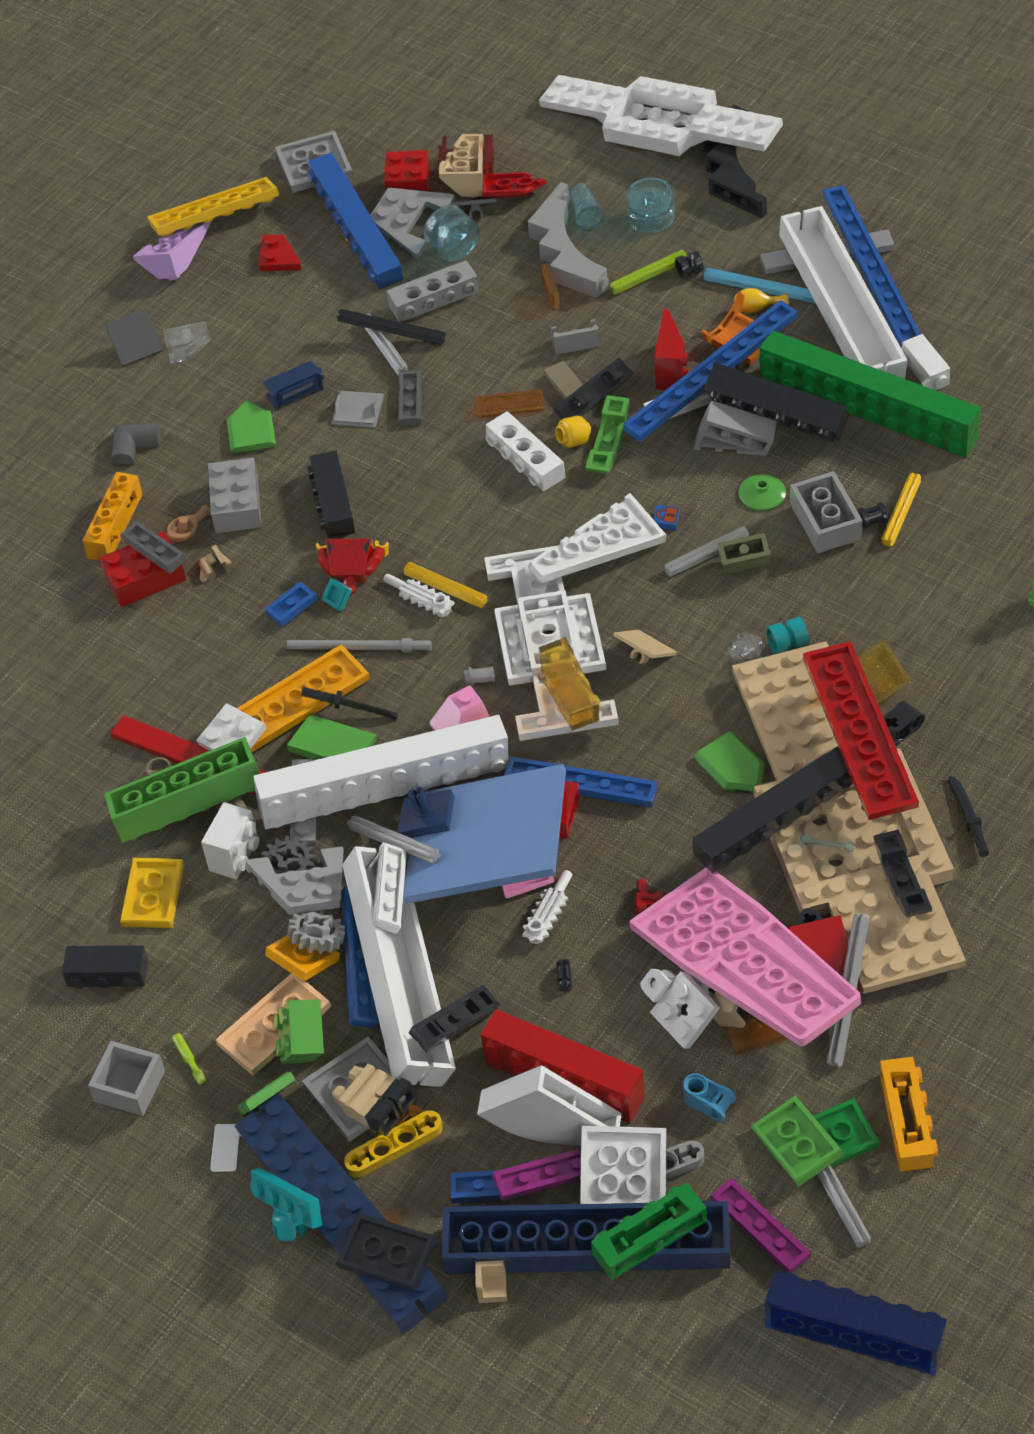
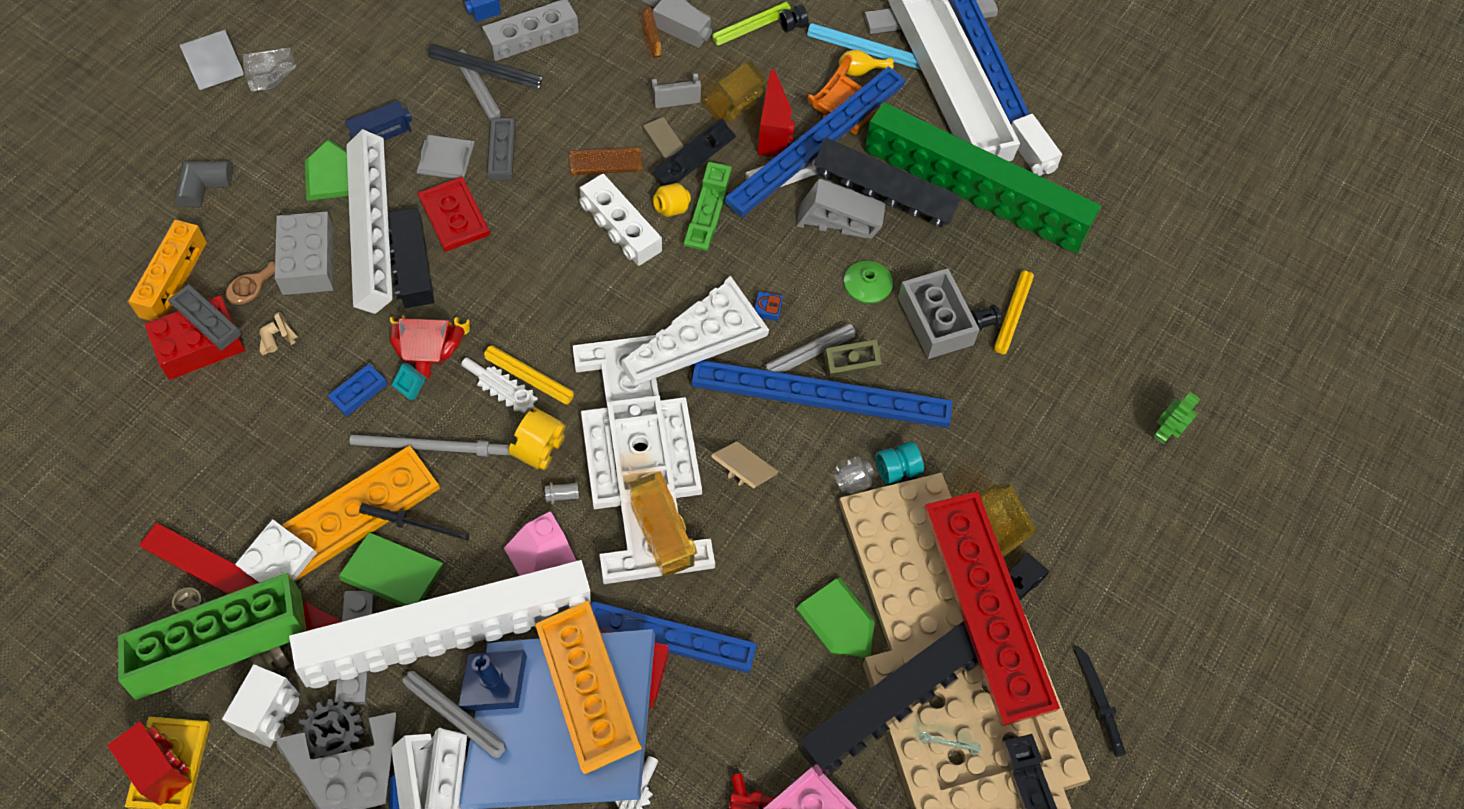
camera: 10 degrees left, 10 degrees up
(143, 880) = (150, 762): none -> red brick
(291, 465) = (368, 222): none -> white brick
(368, 456) = (453, 214): none -> red tile
(455, 631) = (536, 439): none -> yellow brick
(507, 804) = (587, 688): none -> light orange plate
(632, 332) = (736, 92): none -> clear yellow piece
(717, 585) = (822, 393): none -> blue plate

